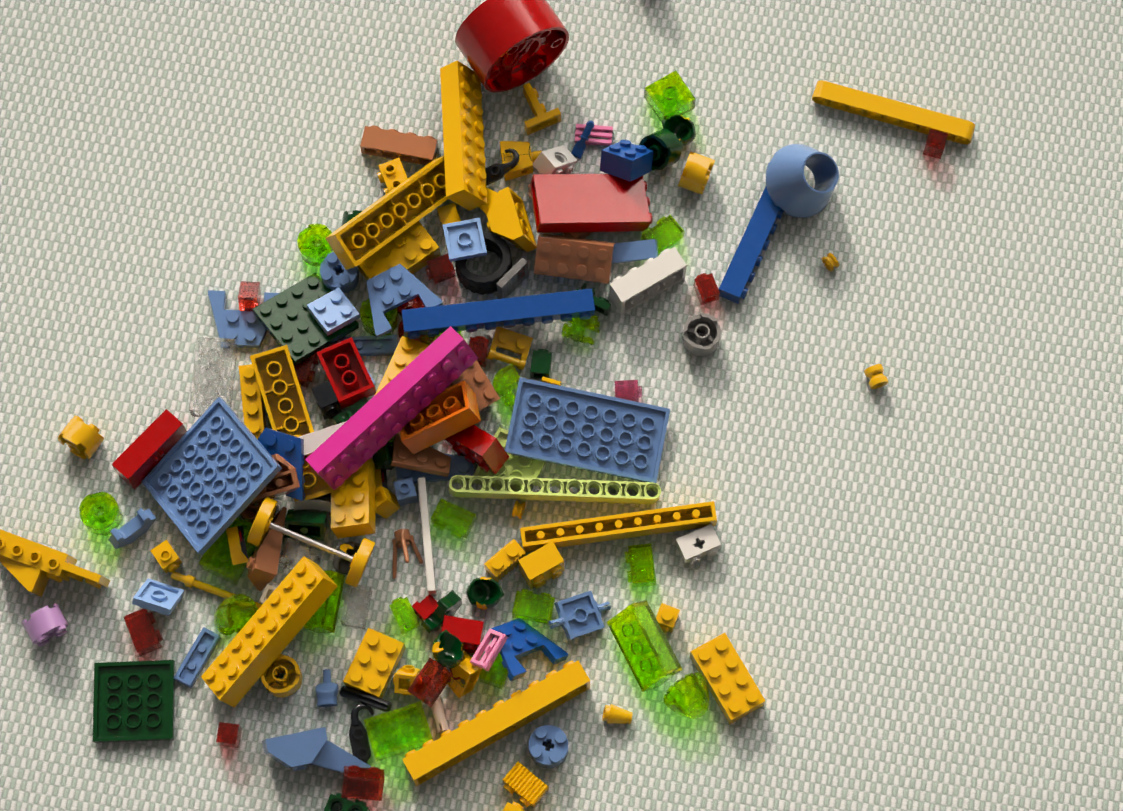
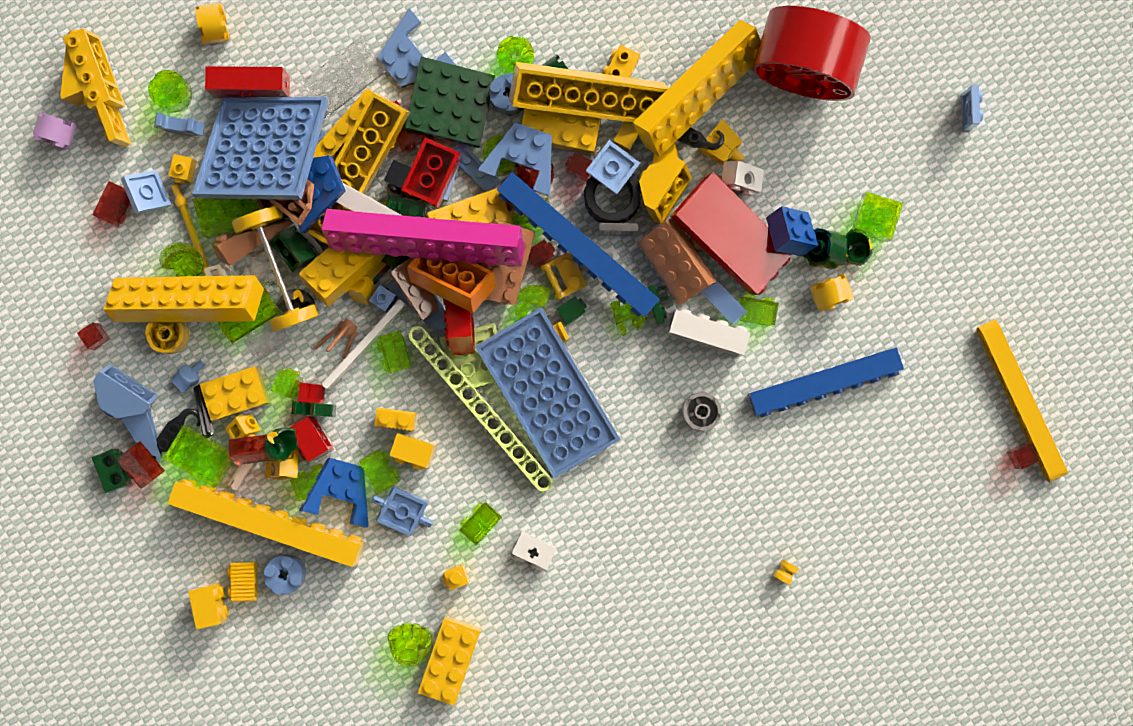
camera: 50 degrees right, 15 degrees up
(133, 701) = (59, 244): dark green plate -> none
(197, 657) = (131, 260): medium blue tile -> none
(237, 545) = (229, 213): yellow sticker -> none
(249, 295) = (431, 43): clear red brick -> none
(333, 311) = (471, 118): light blue plate -> none
(400, 145) = (652, 45): nougat brick -> none
(484, 593) = (357, 426): dark green hair -> none
(491, 650) = (309, 479): bright pink tile -> none
(517, 509) = (444, 393): yellow bush -> none
(542, 118) = (777, 125): yellow bracket -> none
(580, 145) = (774, 183): blue piece -> none
(597, 132) = (786, 171): bright pink tile -> none
(616, 715) = (352, 602): yellow cone -> none
(619, 526) = (494, 481): yellow brick -> none
(628, 390) = (607, 394): clear pink brick -> none
(644, 645) = (418, 581): clear neon green brick -> none
(706, 288) = (743, 381): clear red brick -> none
(788, 184) = (889, 367): medium blue cone -> none
(830, 262) = (850, 457): yellow bush -> none

